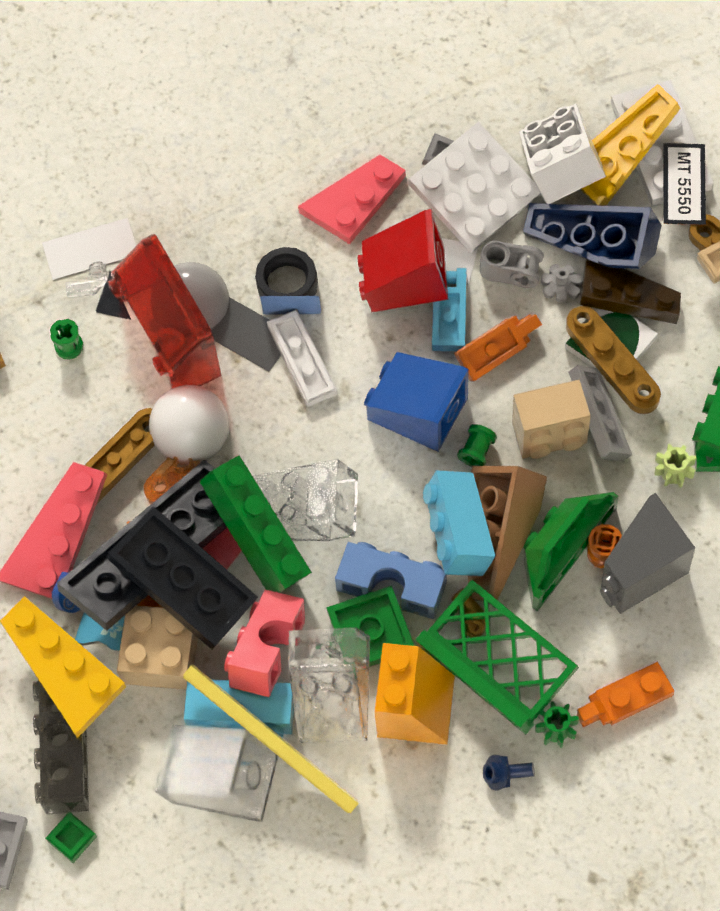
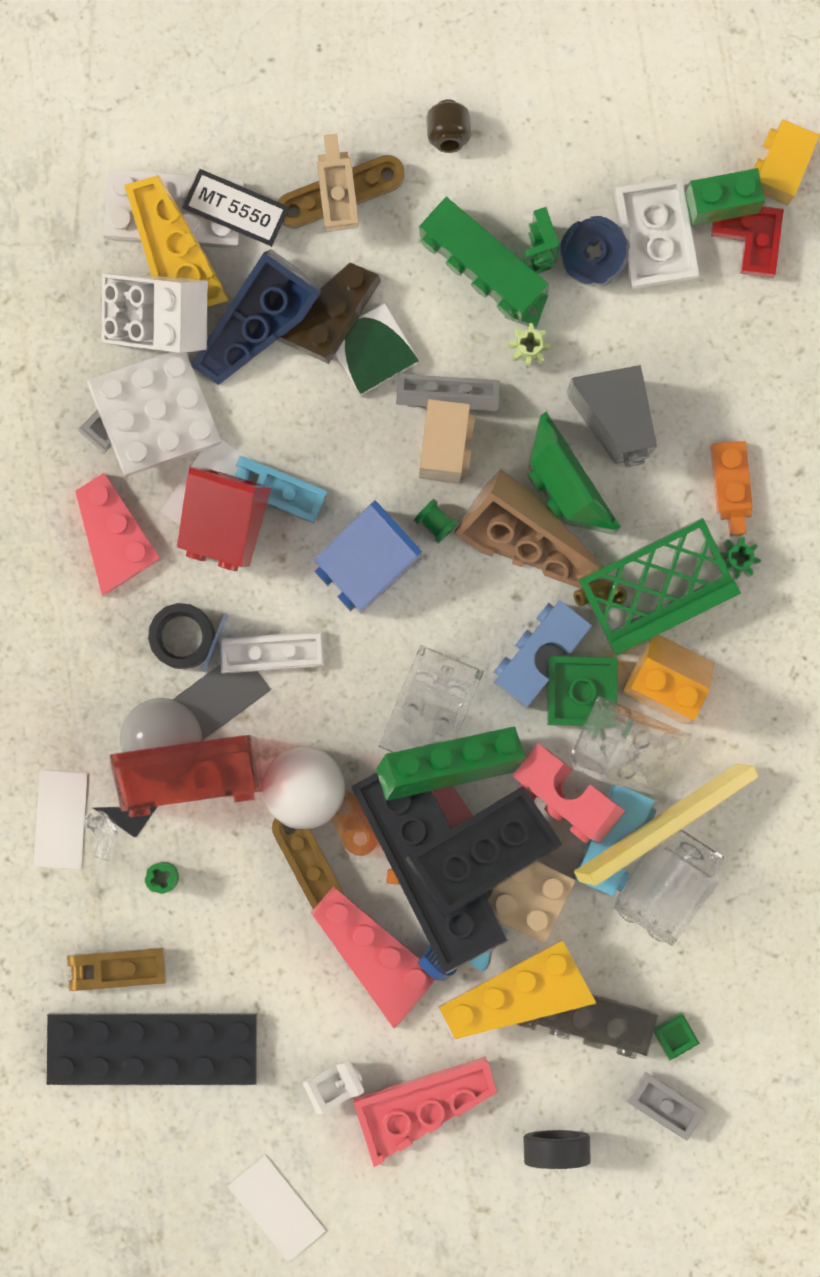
camera: 80 degrees left, 20 degrees up
(458, 523) = (516, 570): medium azure brick -> none
(496, 345) = (337, 459): orange hinge -> none
(502, 771) = (758, 626): dark blue plate -> none
(512, 264) = (256, 404): light grey piece -> none
(561, 282) = (290, 377): light grey plant -> none
(597, 549) = (585, 450): orange wheel -> none
(613, 360) = (398, 357): pearl gold plate -> none

